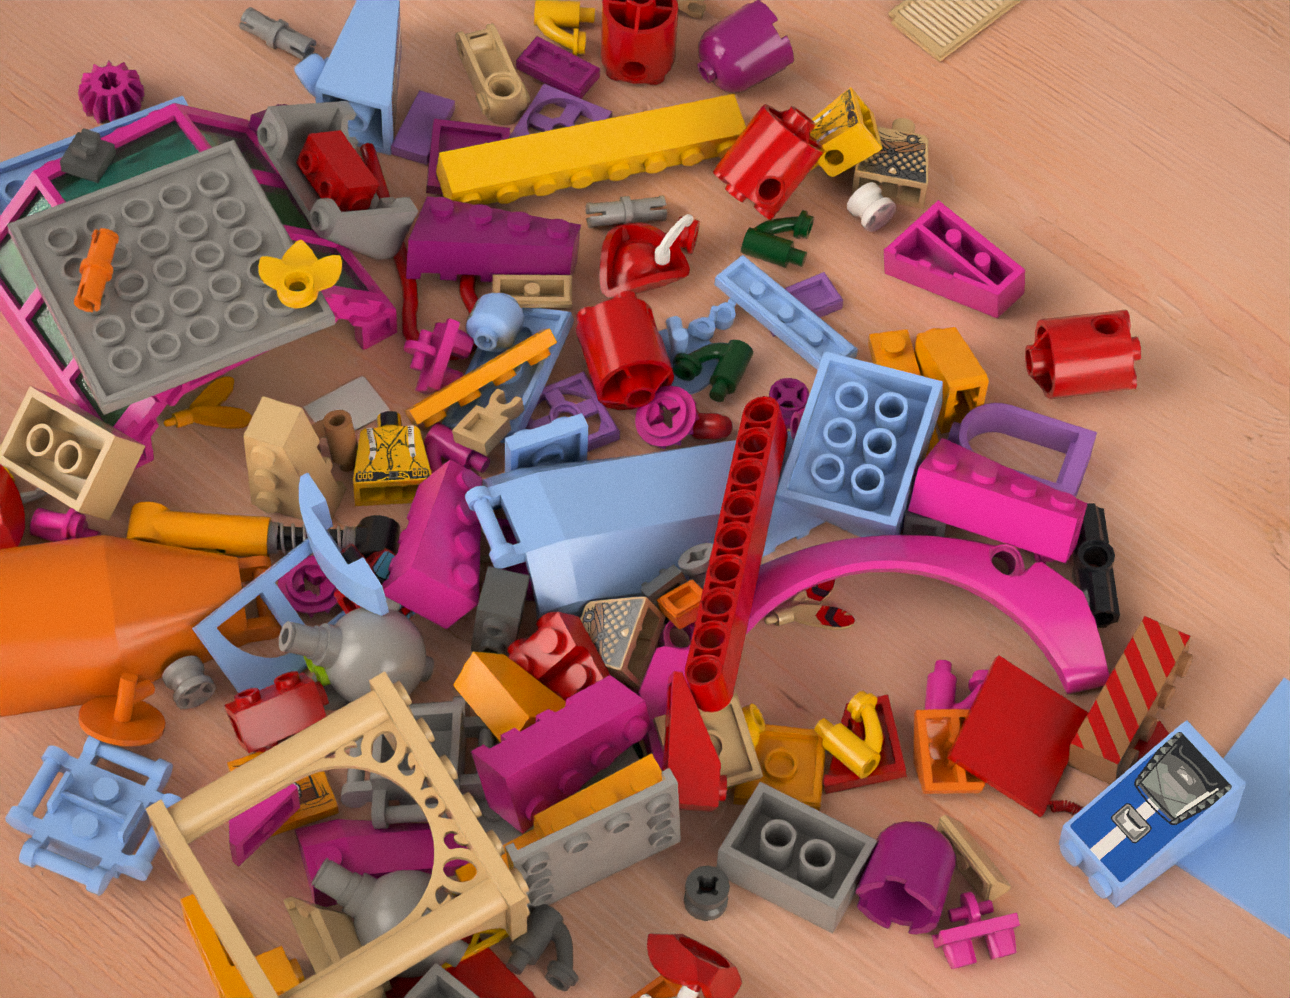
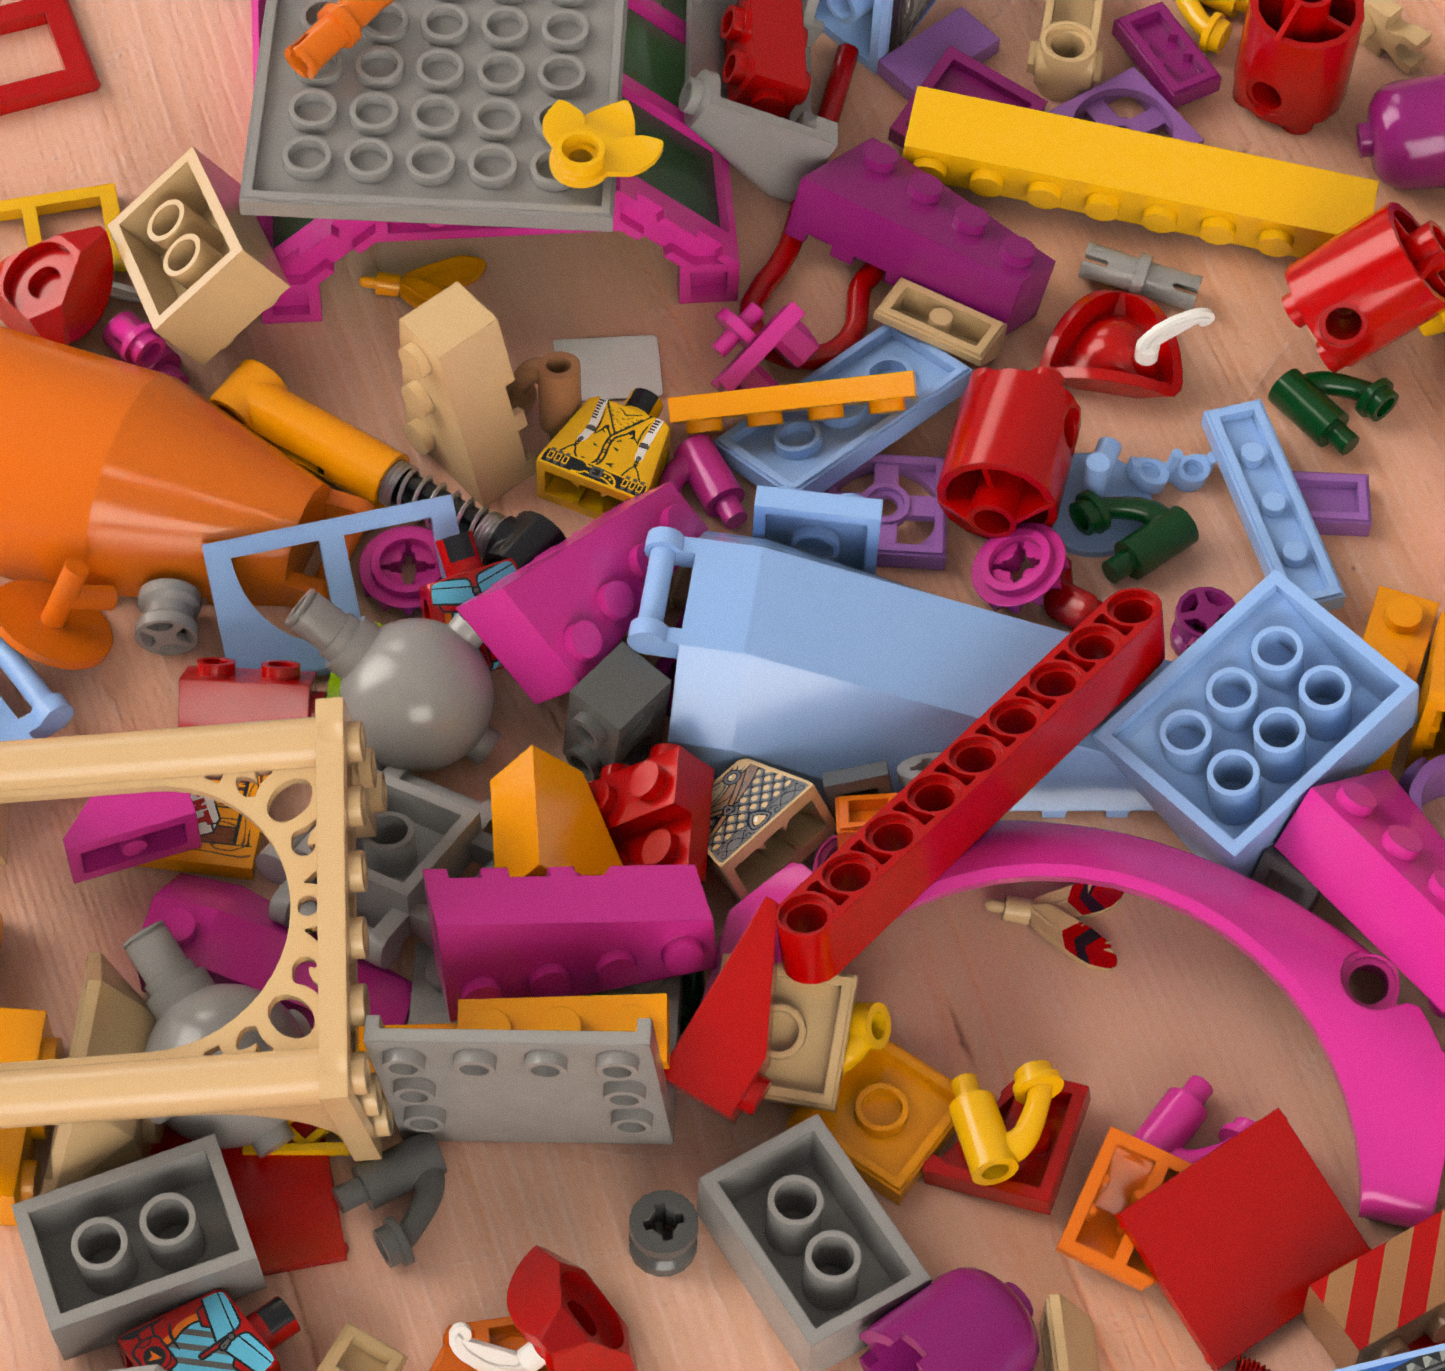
camera: 30 degrees right, 0 degrees up
(352, 580) = (433, 474): light blue slope -> none
(488, 426) = (764, 462): tan plate -> none
(495, 322) = (858, 336): light blue head -> none
(688, 237) = (1204, 344): red bush -> none

